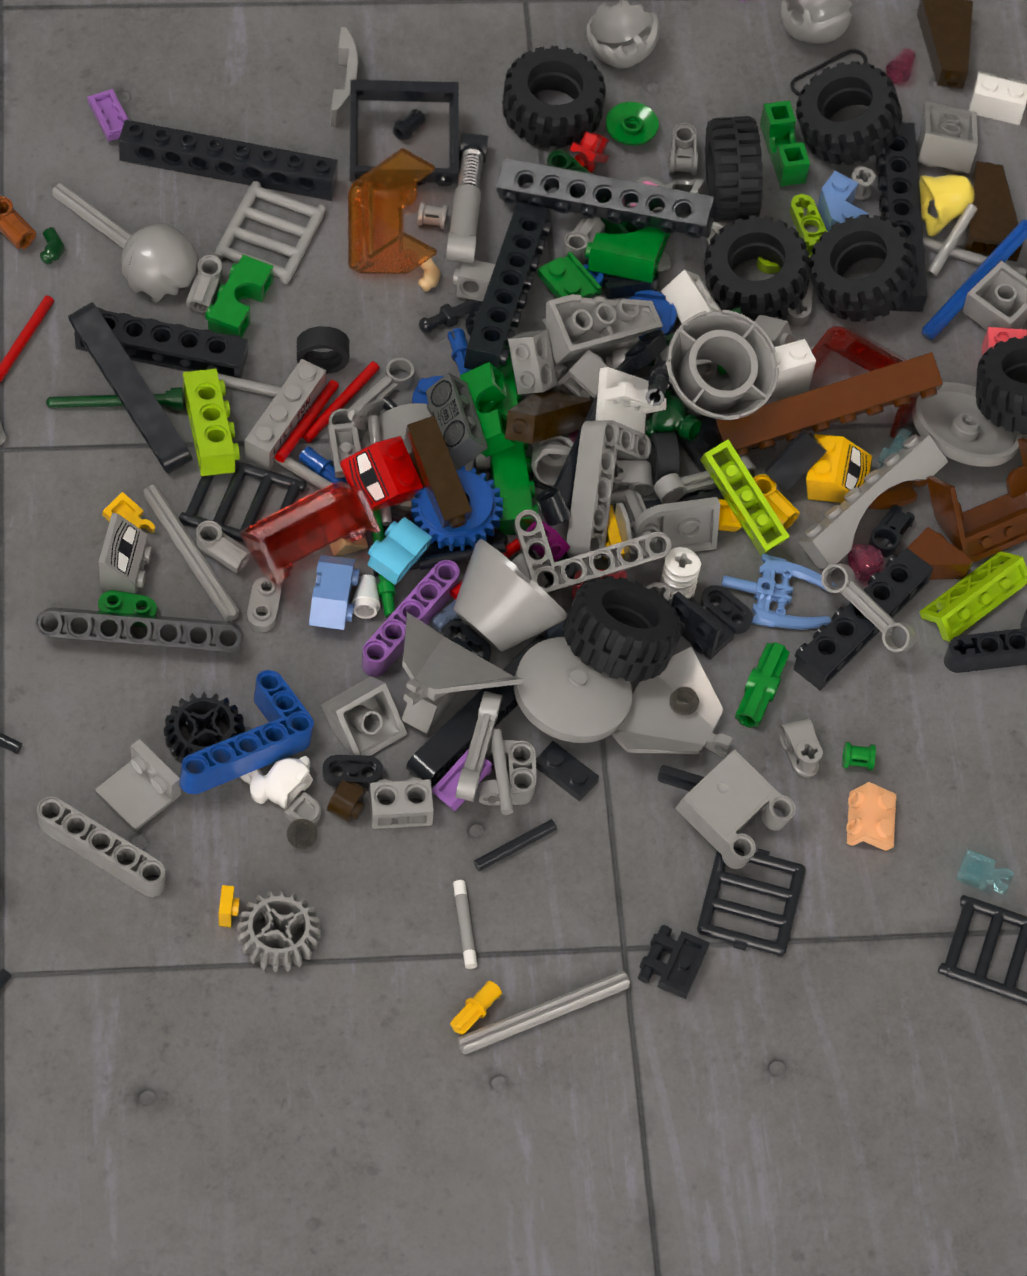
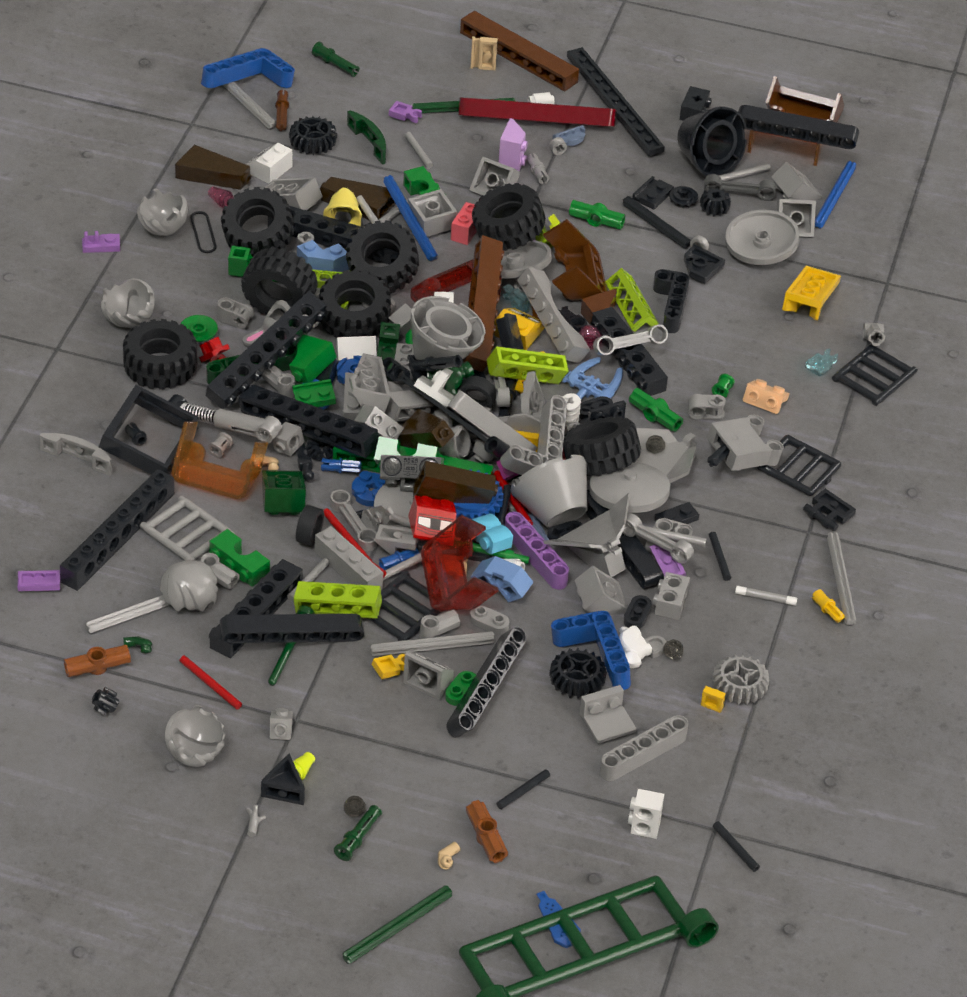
camera: 65 degrees left, 15 degrees down
(347, 801) = (659, 620): dark brown plate -> none
(381, 305) = (283, 491): none -> dark green slope

